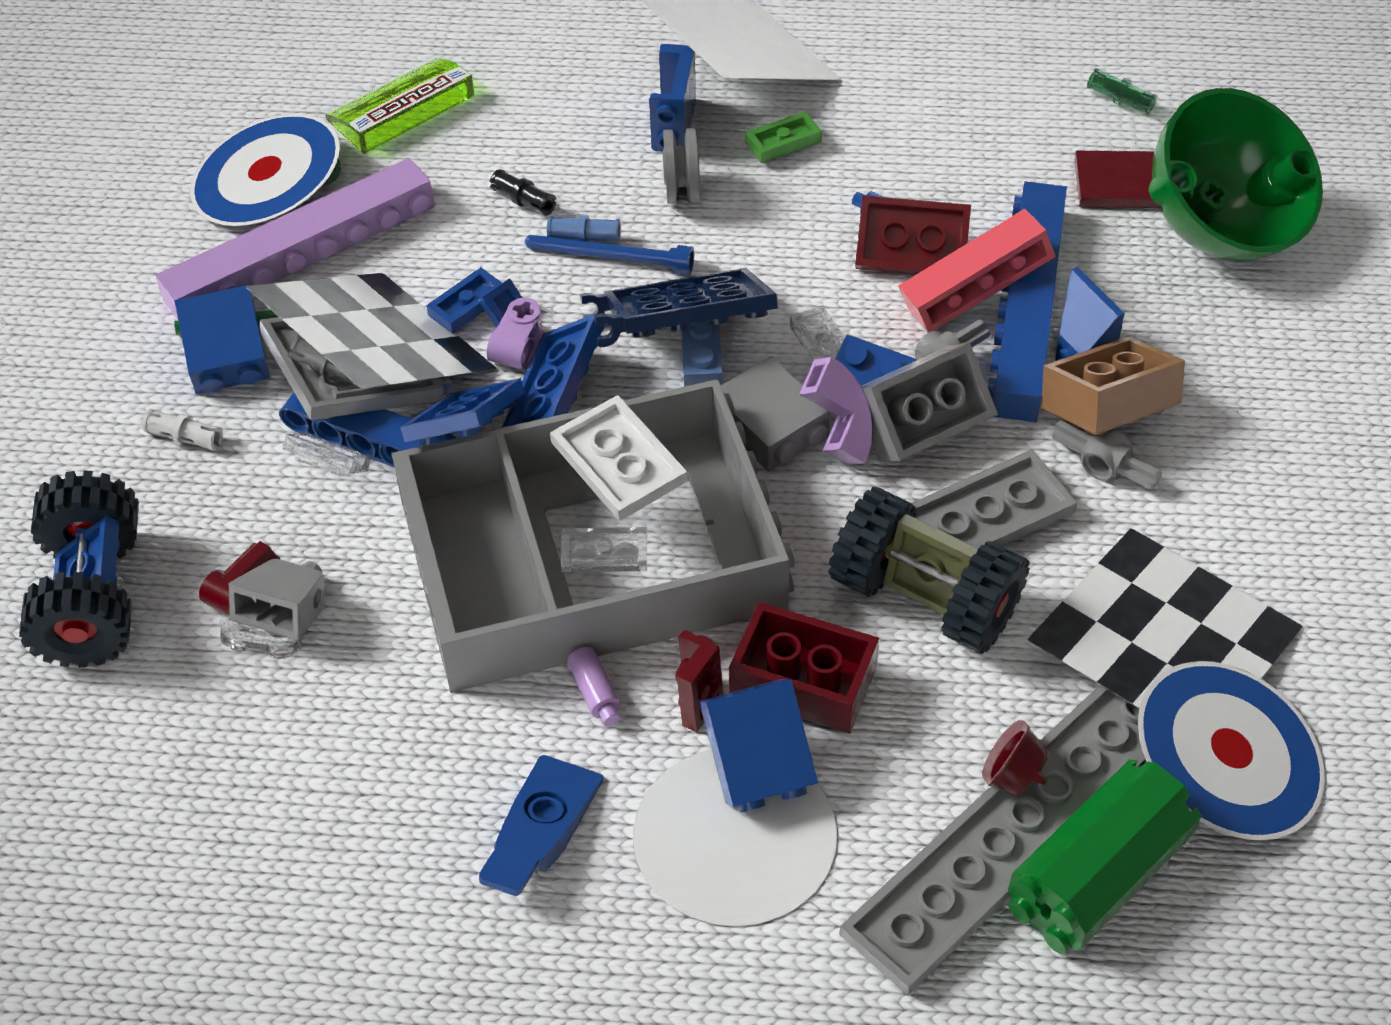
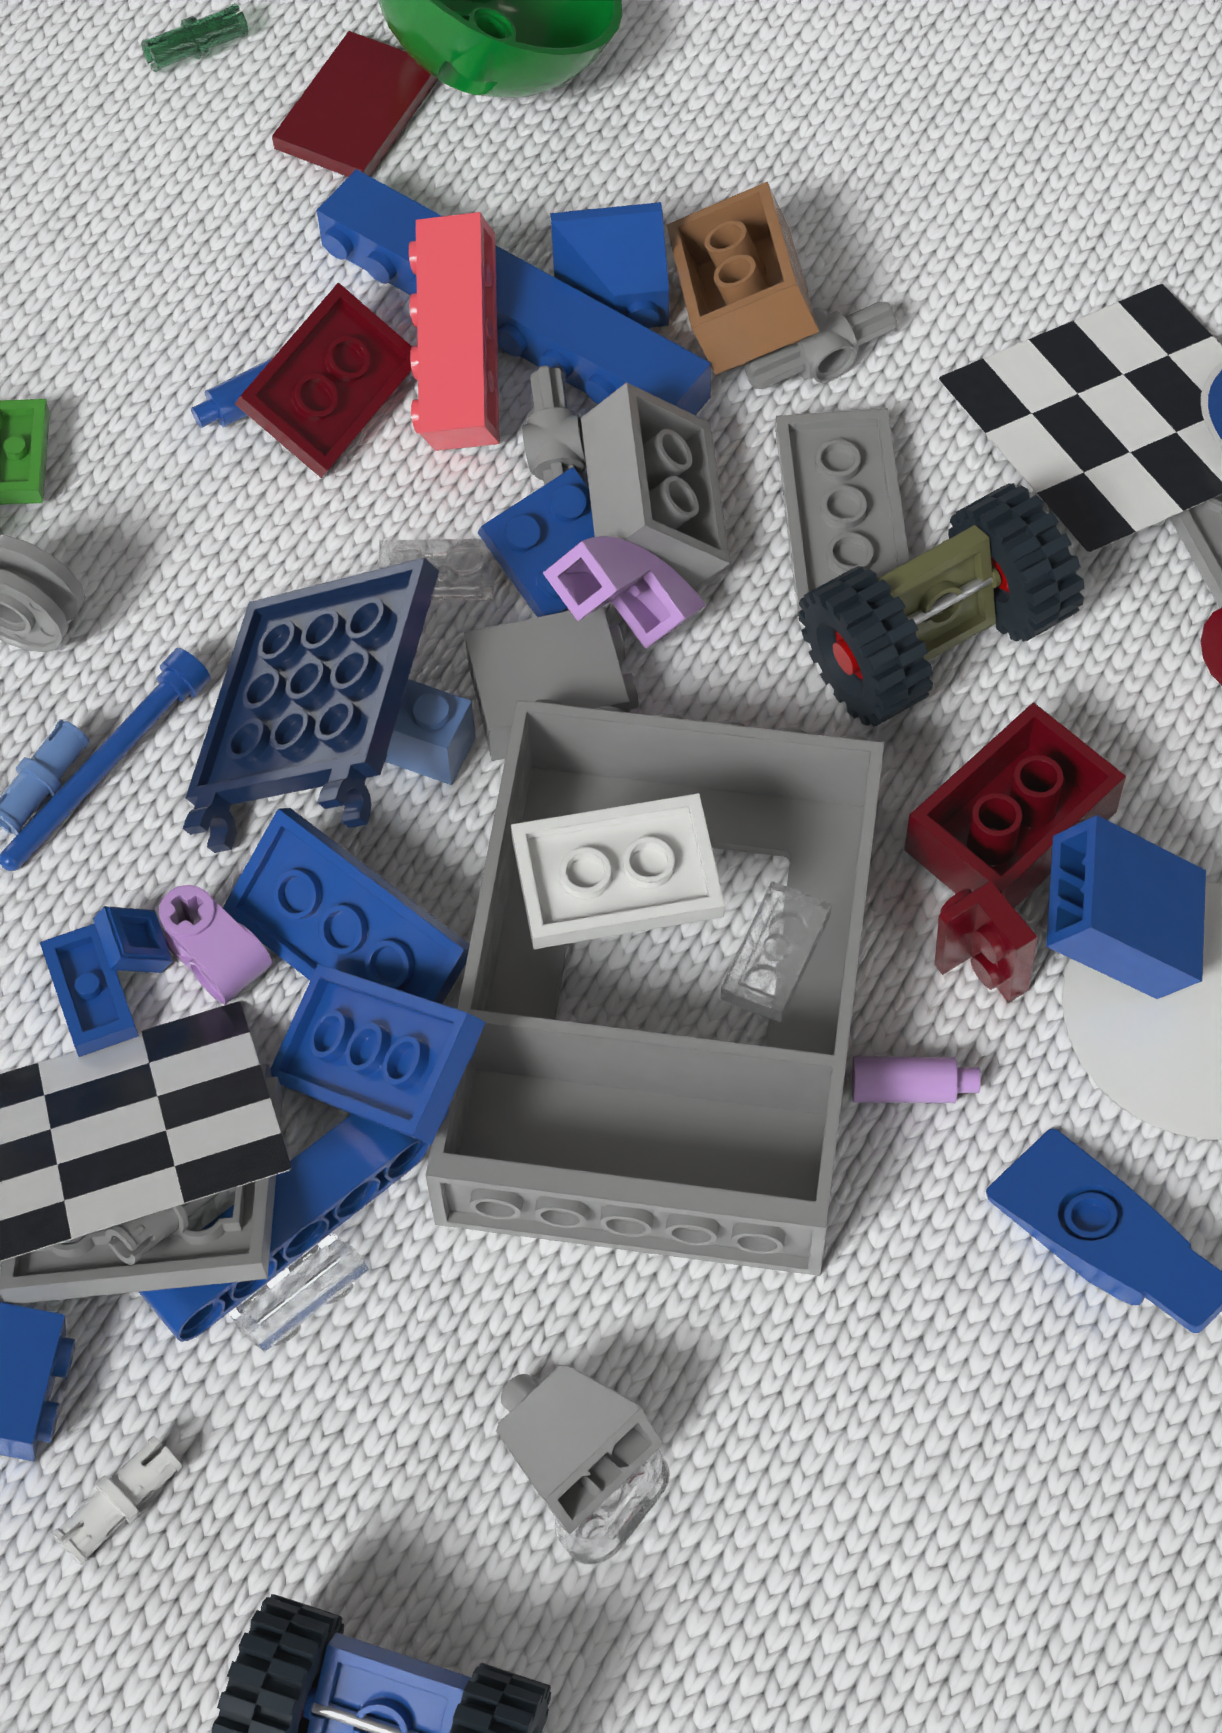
camera: 65 degrees left, 10 degrees up
(215, 587) = (498, 1512): dark red piece -> none

